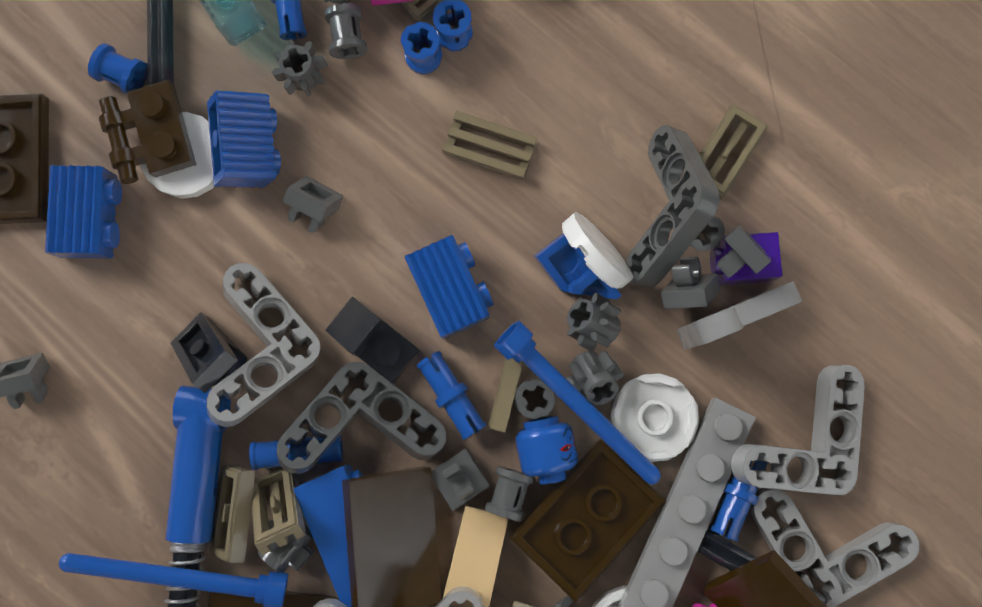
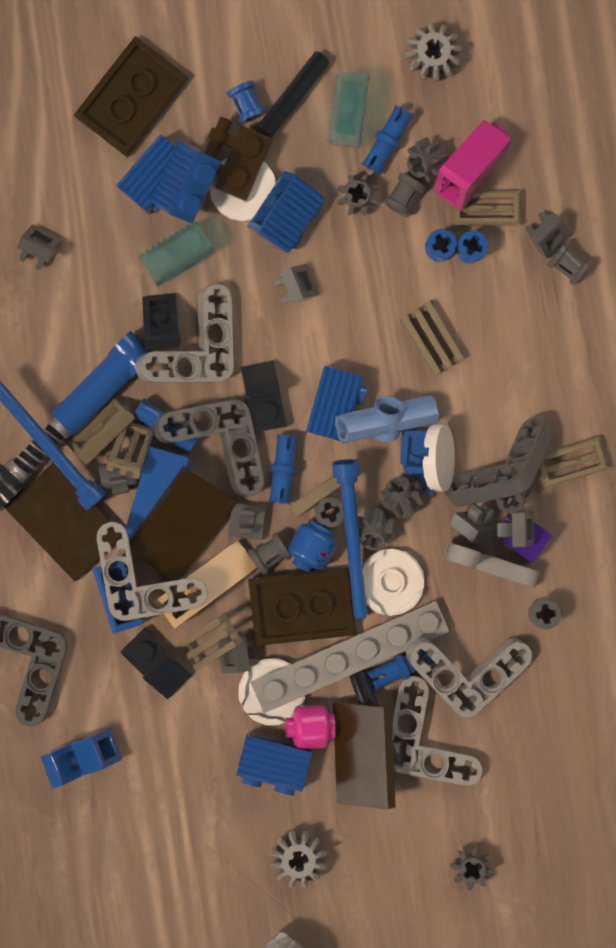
camera: 30 degrees right, 5 degrees up
(107, 187) = (185, 182): none -> blue brick
(164, 269) = (176, 253): none -> clear light blue brick
(511, 257) = (386, 419): none -> medium blue piece
(848, 318) = (552, 620): none -> dark grey bush

